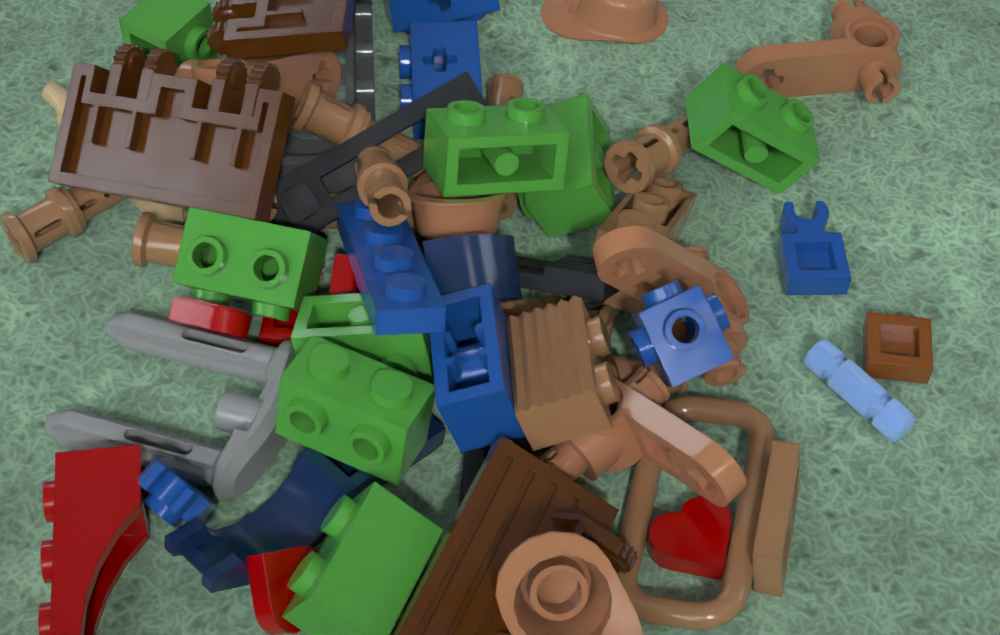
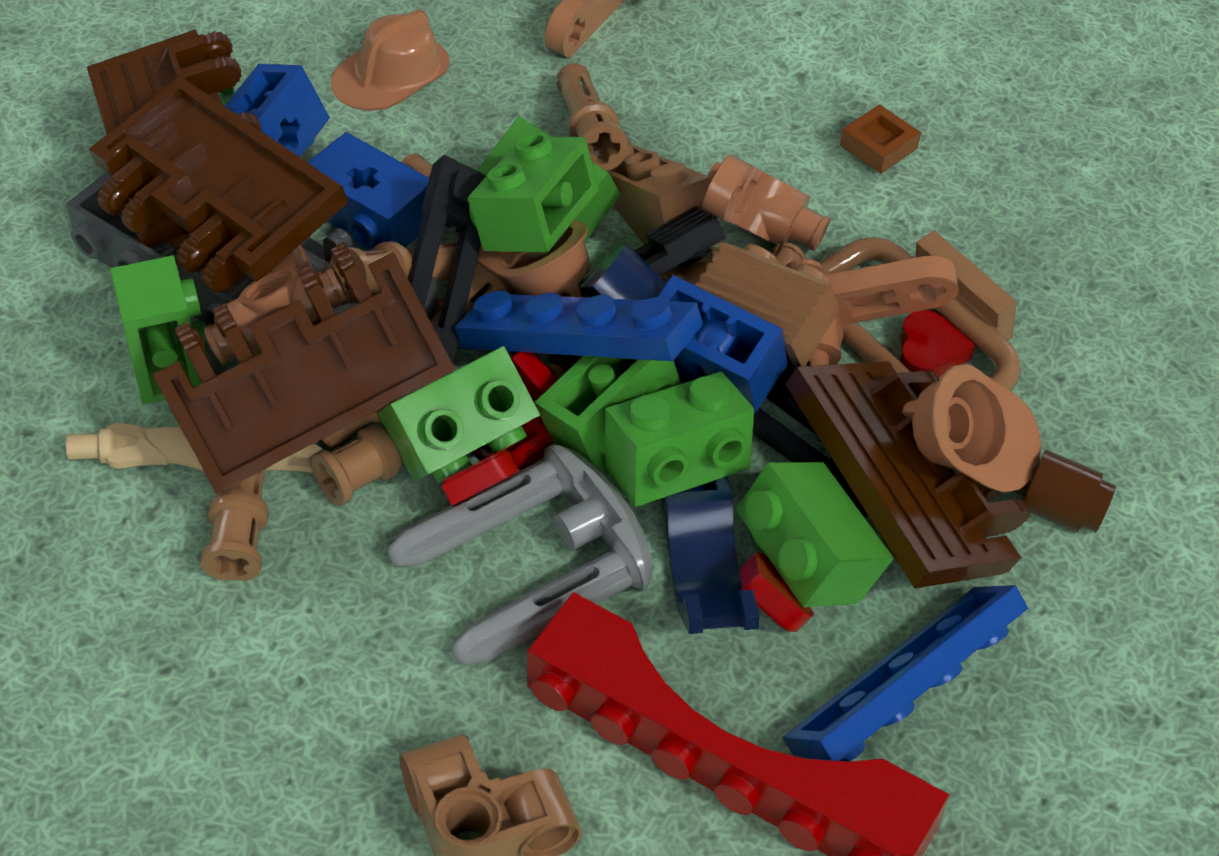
camera: 50 degrees left, 0 degrees up
(173, 495) = (646, 596): blue plate -> none
(382, 186) = (500, 277): medium nougat pin -> none
(703, 342) = (799, 217): blue brick -> none
(752, 128) = (630, 63): bright green brick -> none
(810, 258) = (757, 124): blue plate -> none
(859, 390) = (892, 181): light blue axle -> none

